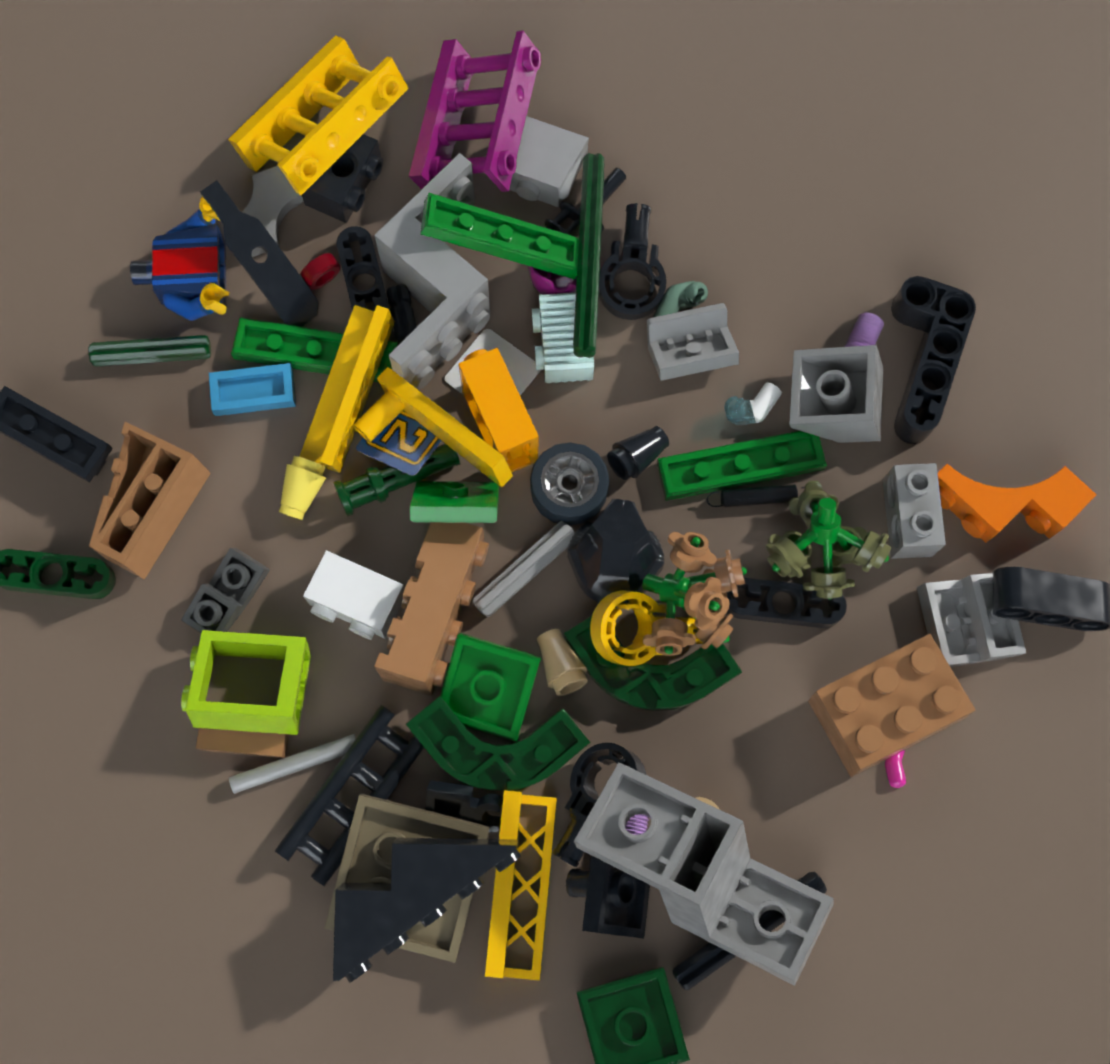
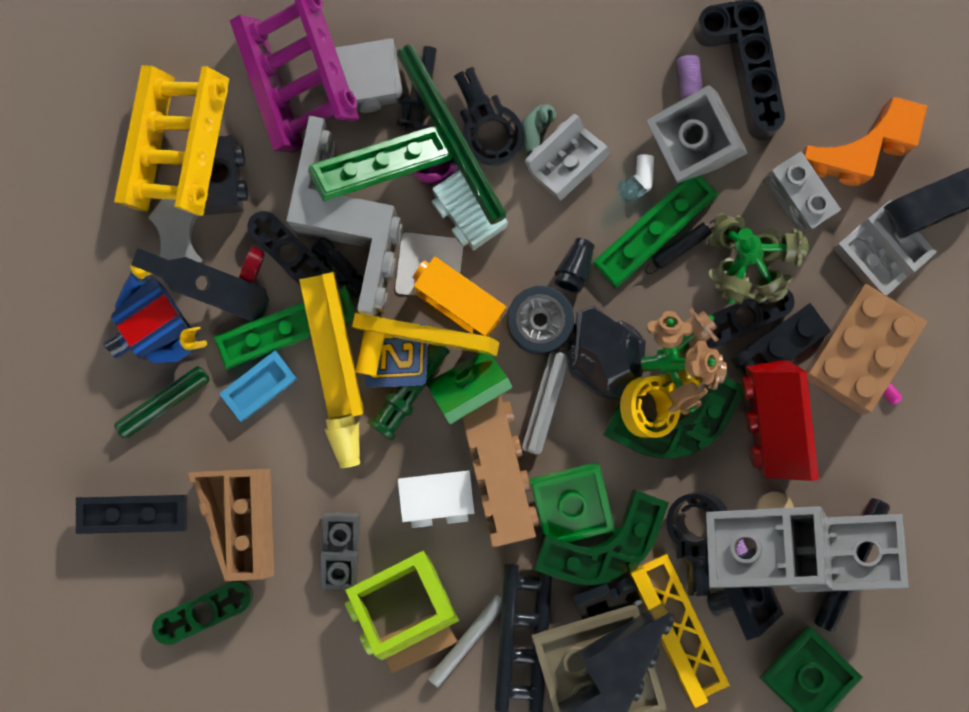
camera: 30 degrees left, 10 degrees up
(561, 664) = (614, 457): tan cone -> none
(755, 723) = (780, 421): none -> red slope
(805, 653) = (786, 339): none -> black plate

